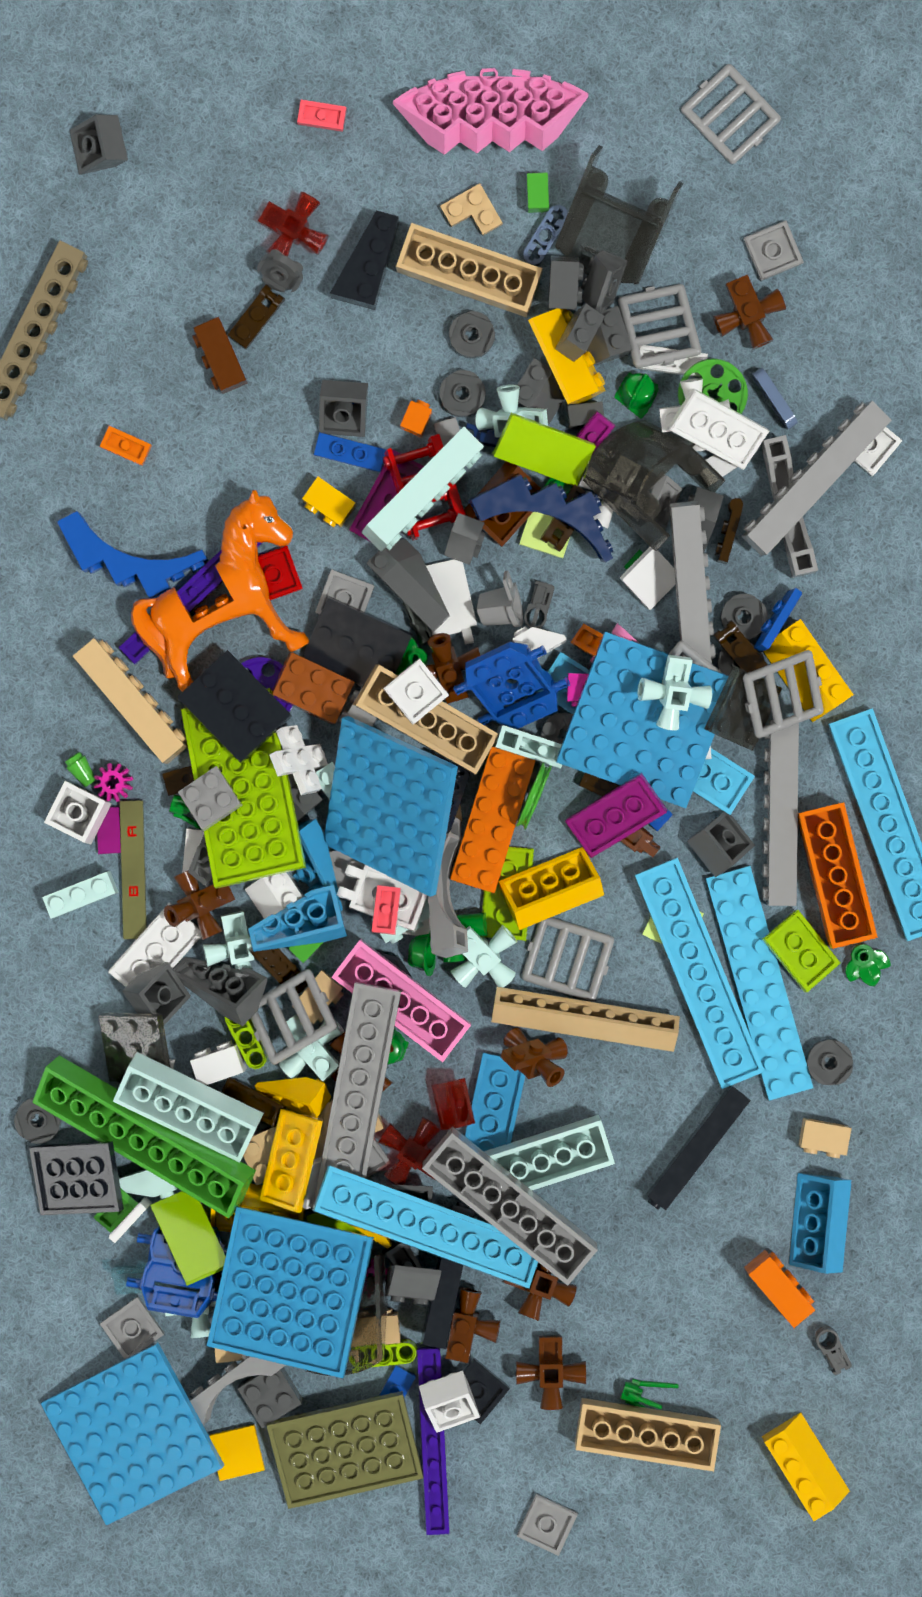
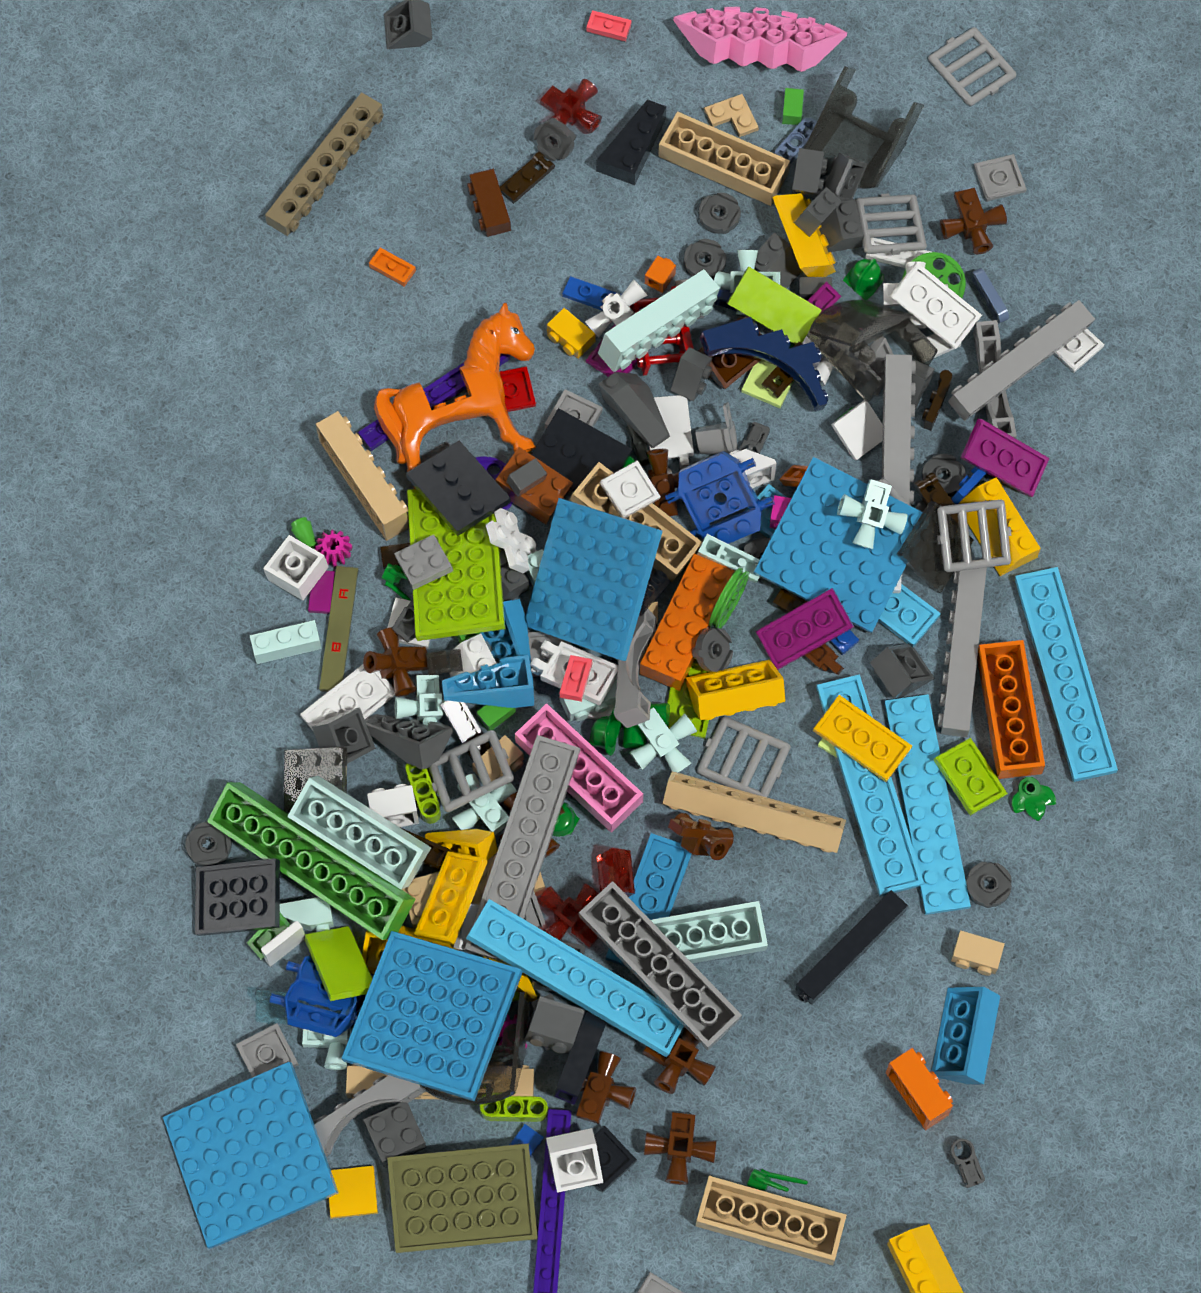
camera: 10 degrees right, 20 degrees down
(153, 574) = (375, 366): blue arch -> none
(247, 898) = (444, 662): none -> clear smoke brick
(305, 691) = (526, 477): none -> dark grey piece
(343, 408) = (595, 258): dark grey slope -> none
(374, 476) = (616, 308): none -> white brick
(518, 842) = (704, 649): none -> dark grey plate
(687, 928) = (862, 738): none -> yellow tile
(807, 596) = (1005, 458): none -> magenta tile

